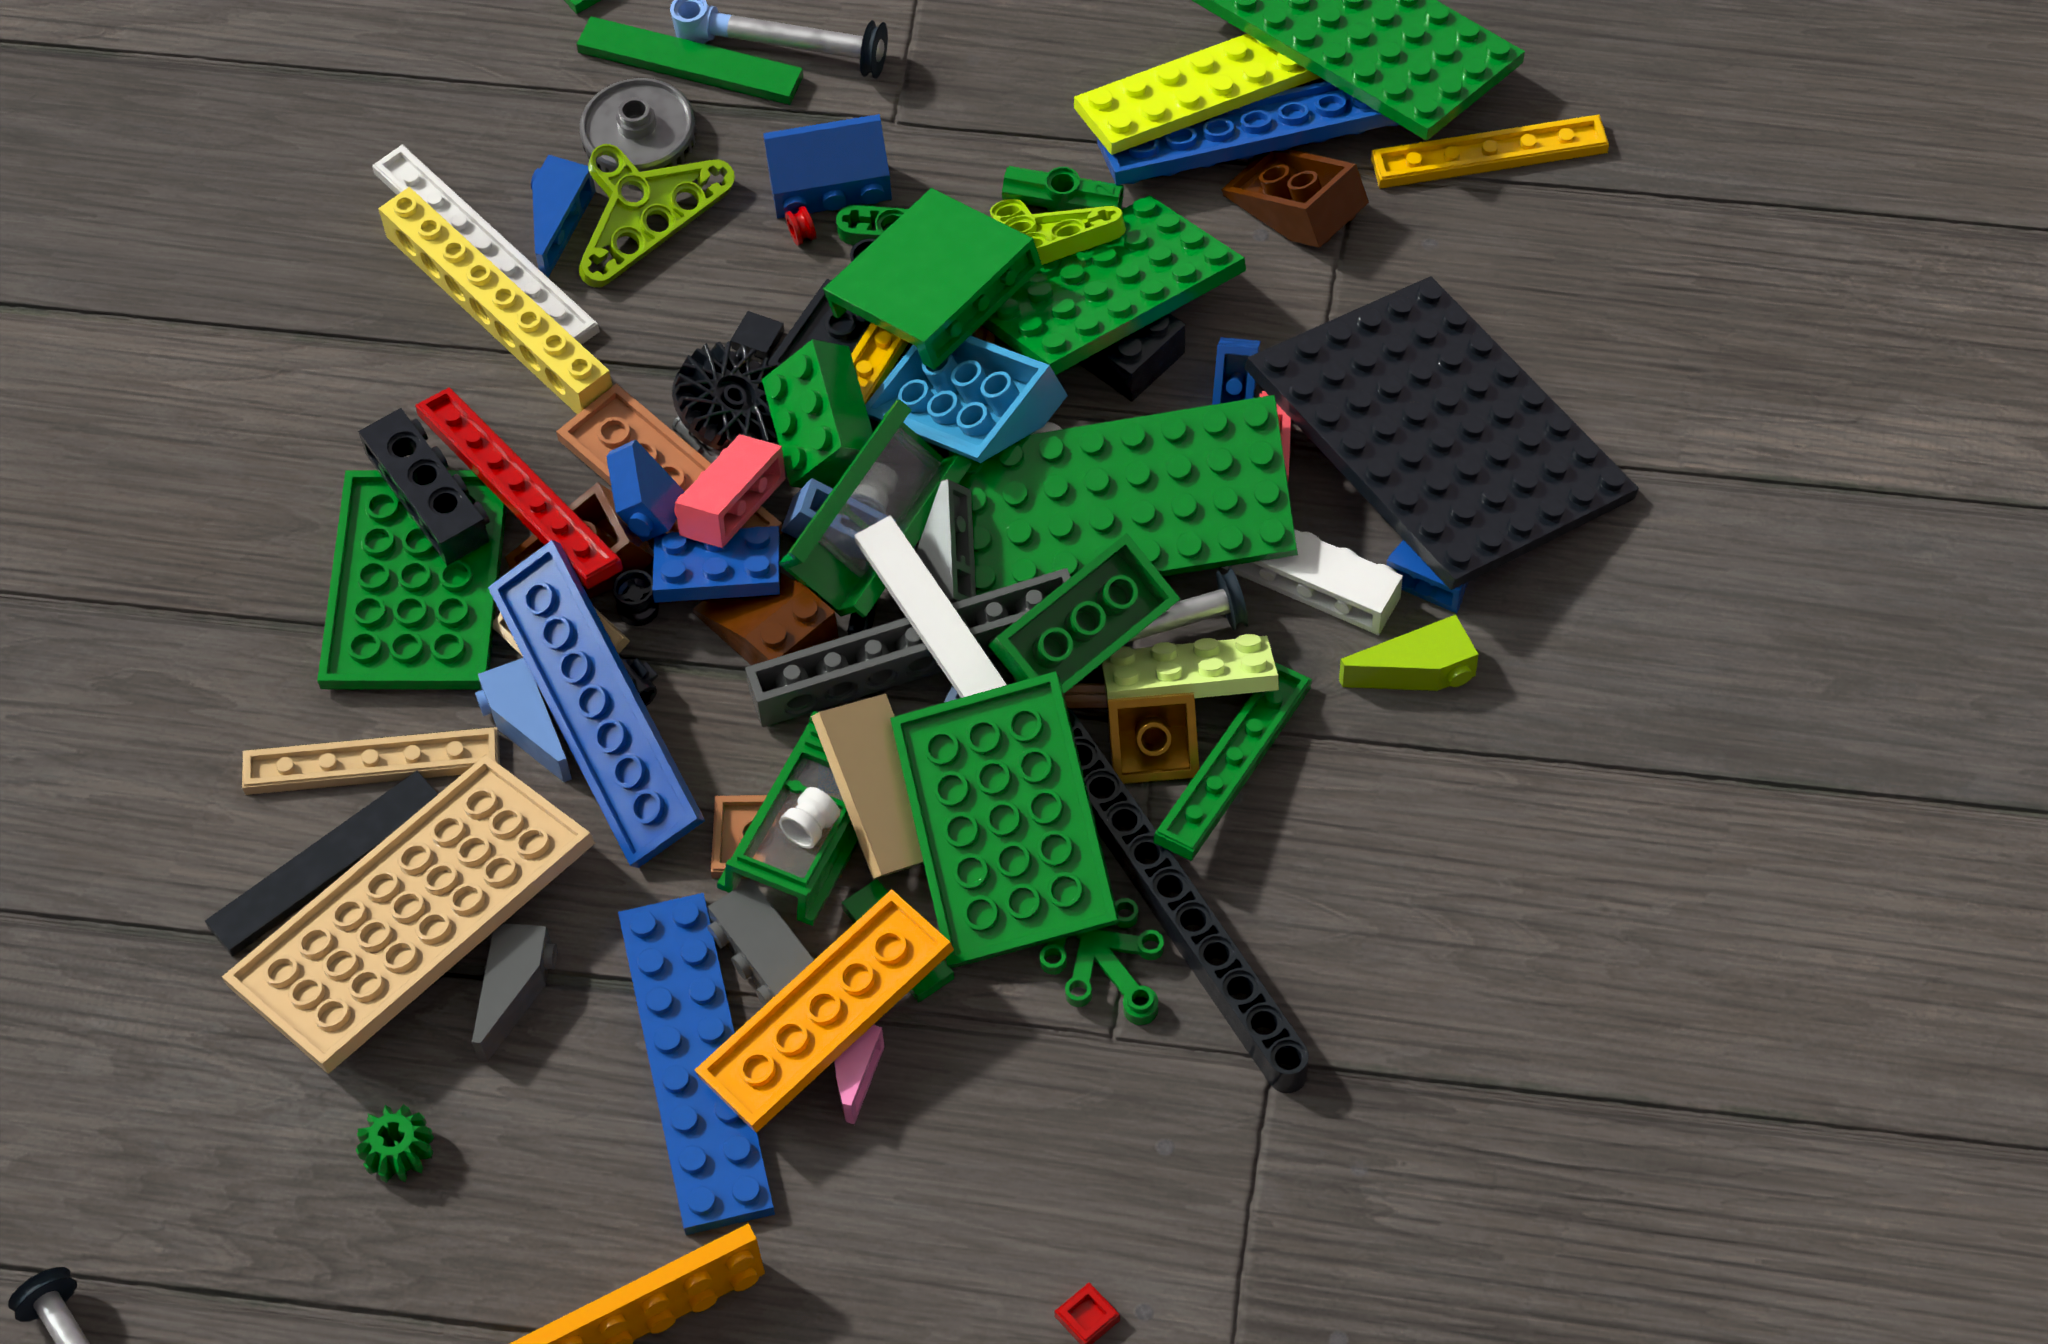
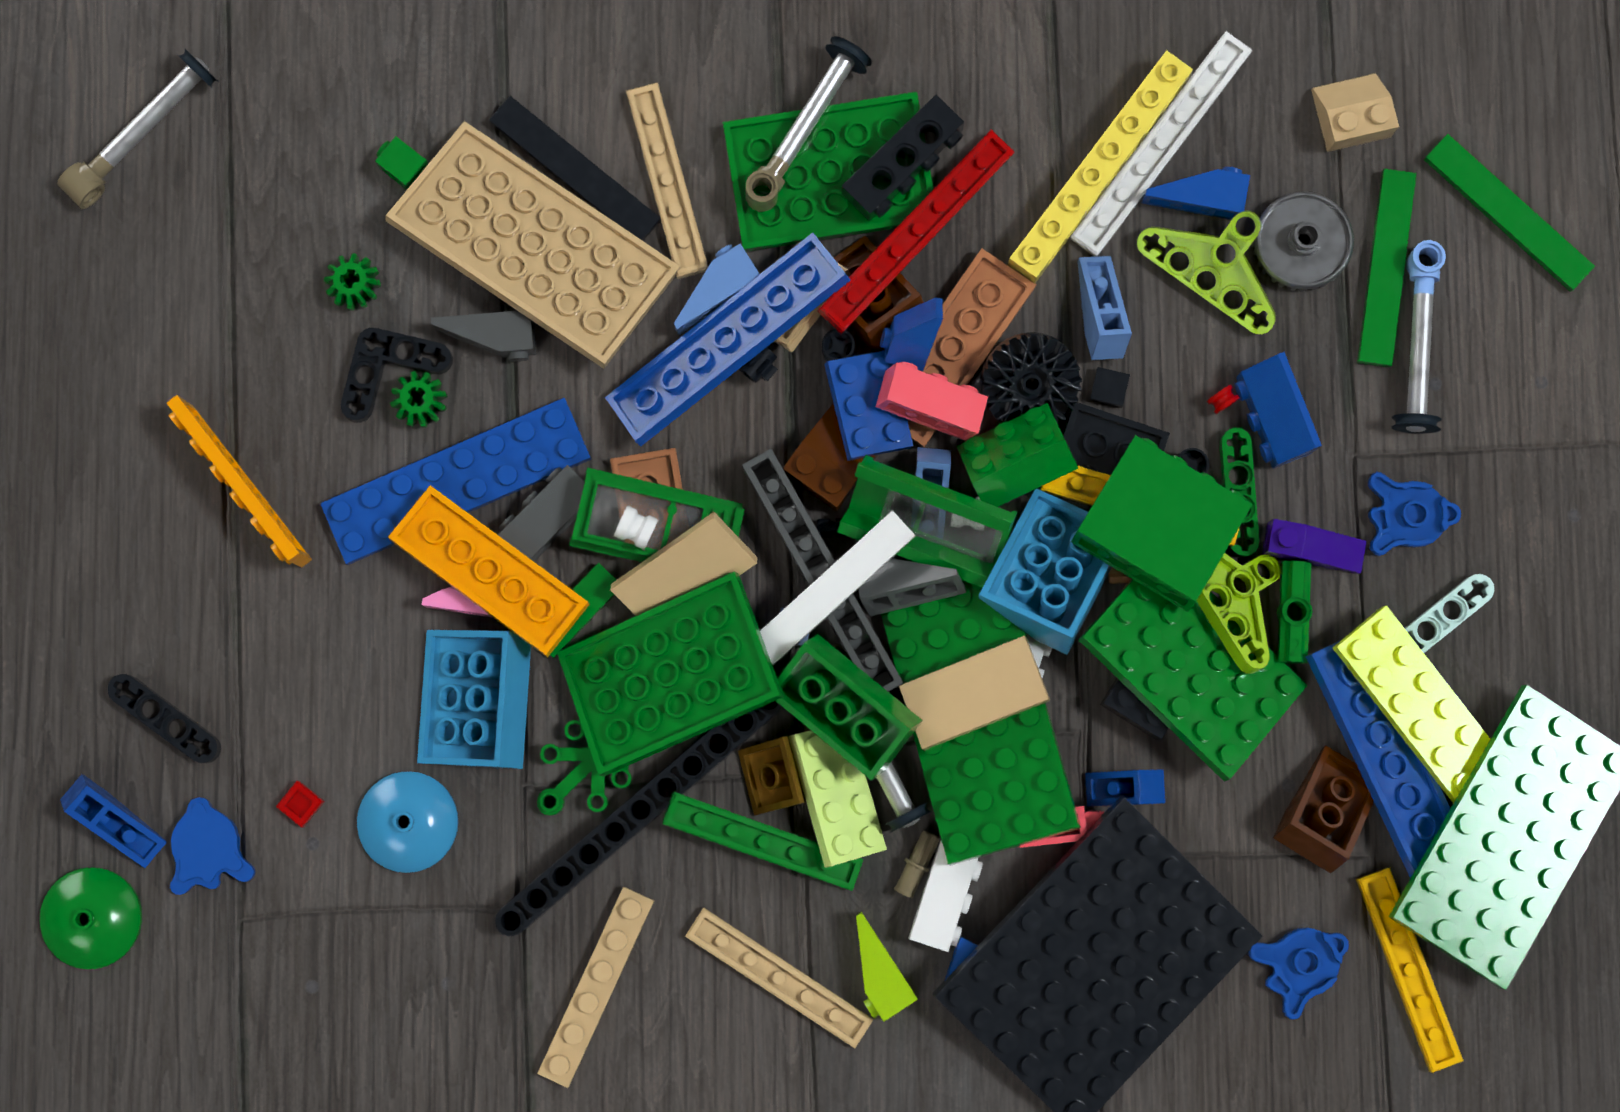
camera: 80 degrees right, 25 degrees up
(254, 1060) = (400, 162): none -> green brick
(413, 631) = (846, 58): none -> piece
(504, 59) = (1355, 112): none -> tan slope
(509, 1134) = (377, 360): none -> black beam
(589, 1073) = (407, 401): none -> green gear
(667, 322) = (1103, 309): none -> medium blue slope
(974, 79) = (1409, 514): none -> blue tile
(984, 166) = (1314, 545): none -> dark purple slope
(987, 1073) = (474, 699): none -> dark azure slope
(1090, 40) = (1437, 618): none -> light aqua beam
(1092, 483) = (975, 692): none -> tan tile
(1142, 1209) = (431, 824): none -> dark azure dish
(1290, 605) = (917, 864): none -> dark tan axle
(1390, 986) = (595, 987): none -> tan plate
(1406, 778) = (779, 977): none -> tan tile
(1471, 247) = (1302, 964): none -> blue tile

